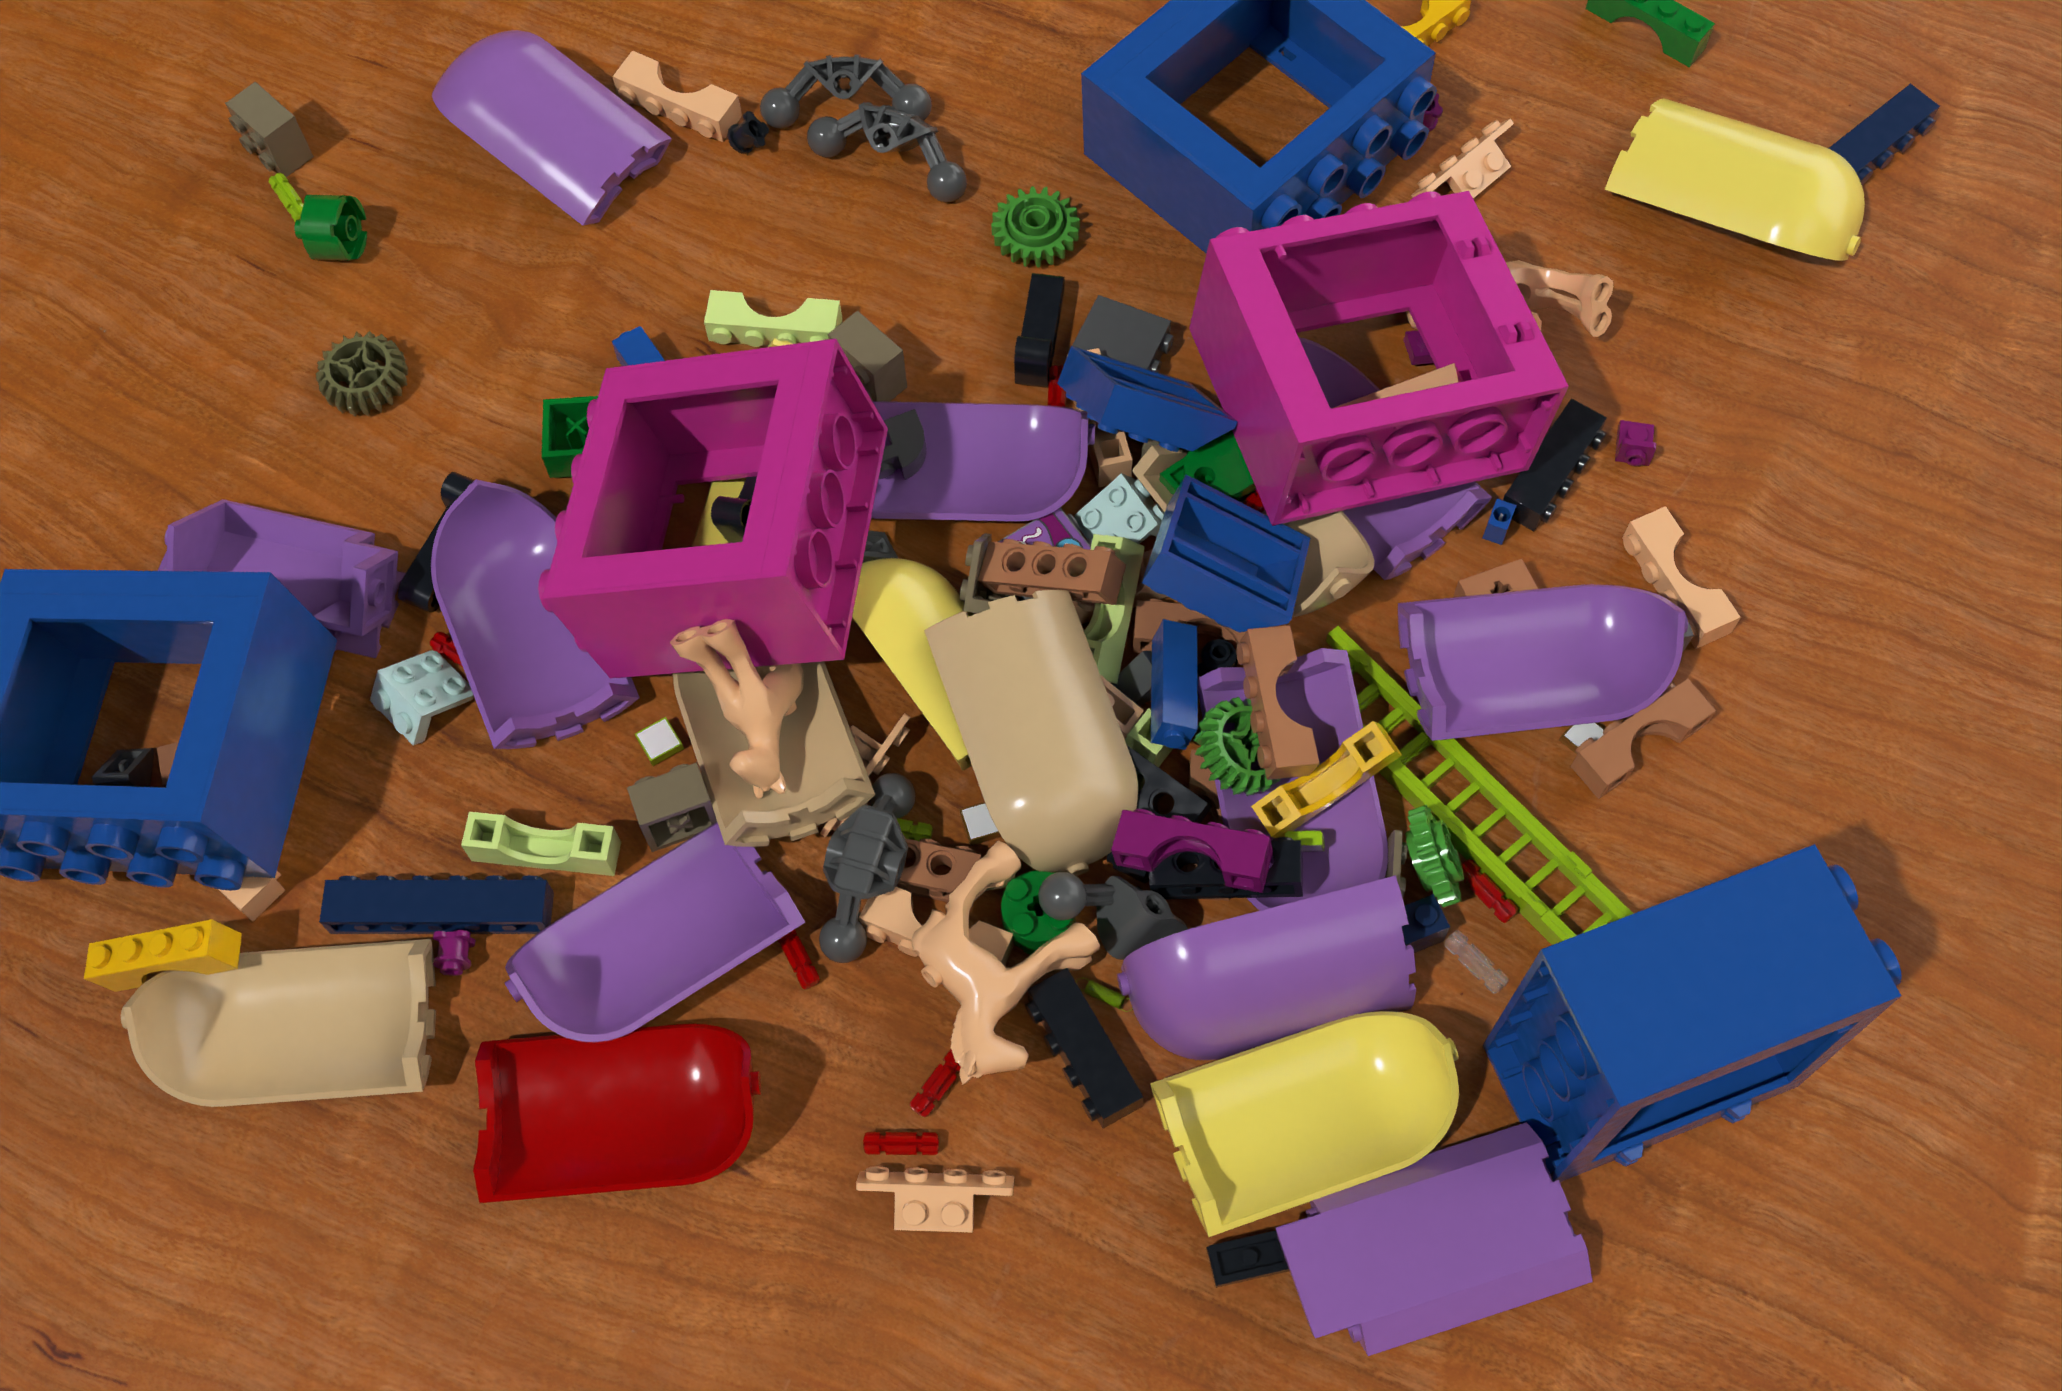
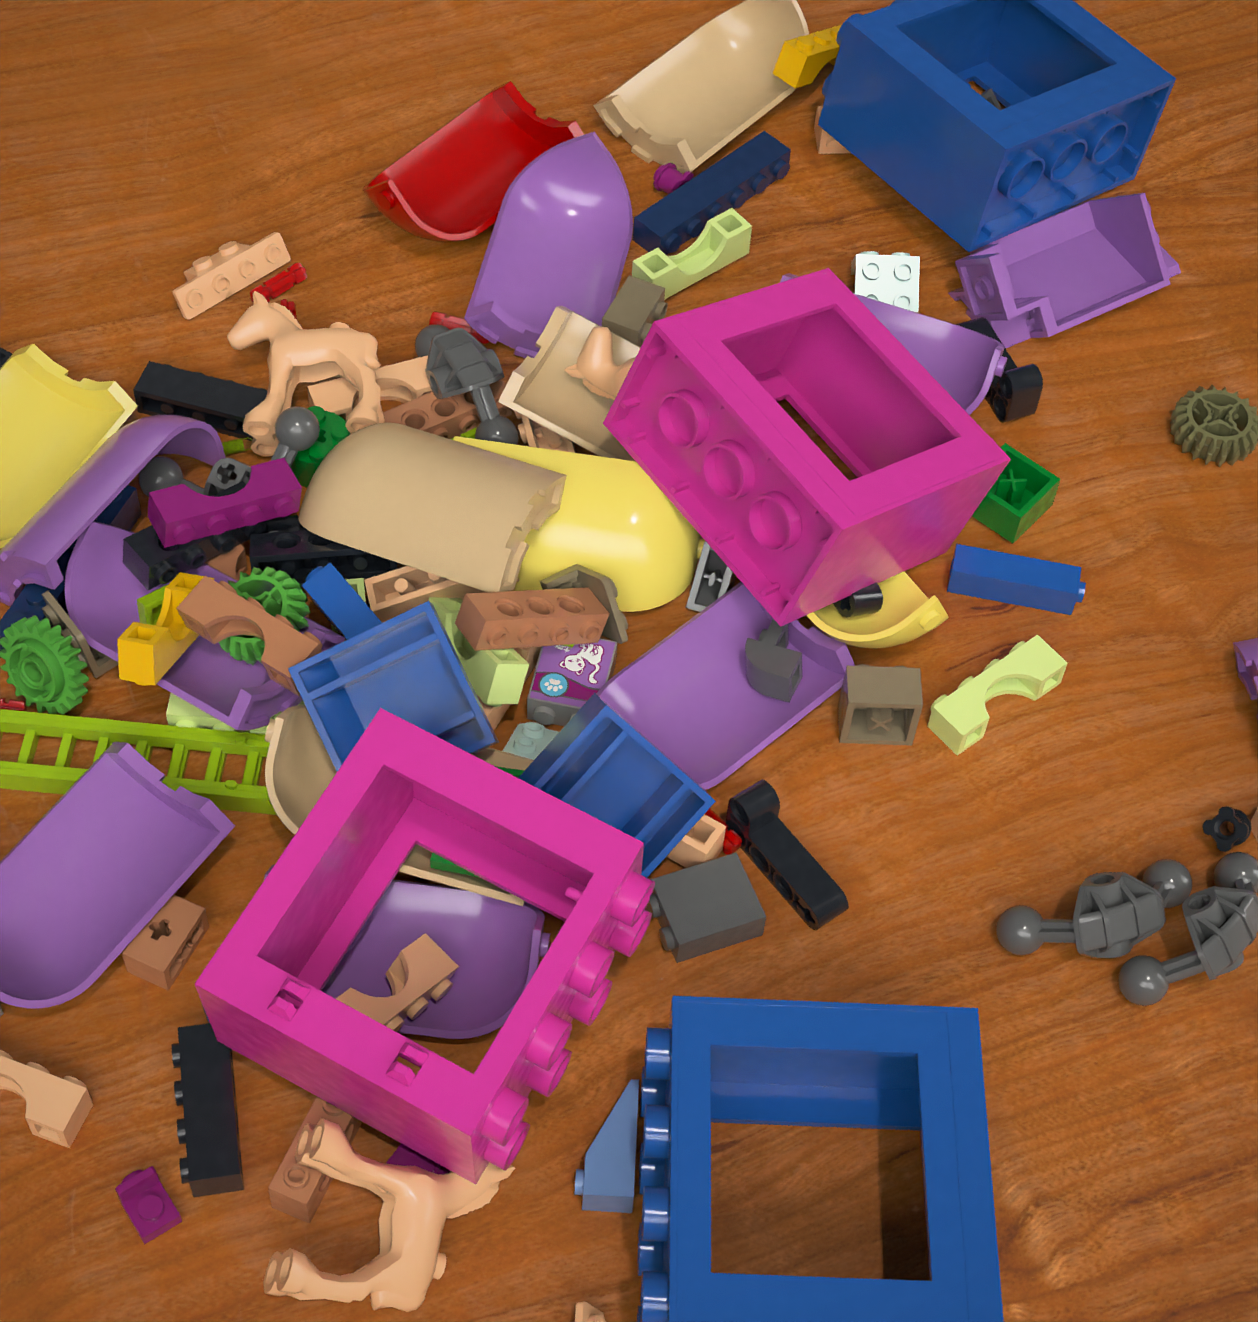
camera: 130 degrees right, 10 degrees down
(1035, 226) = (918, 973): bright green gear -> none

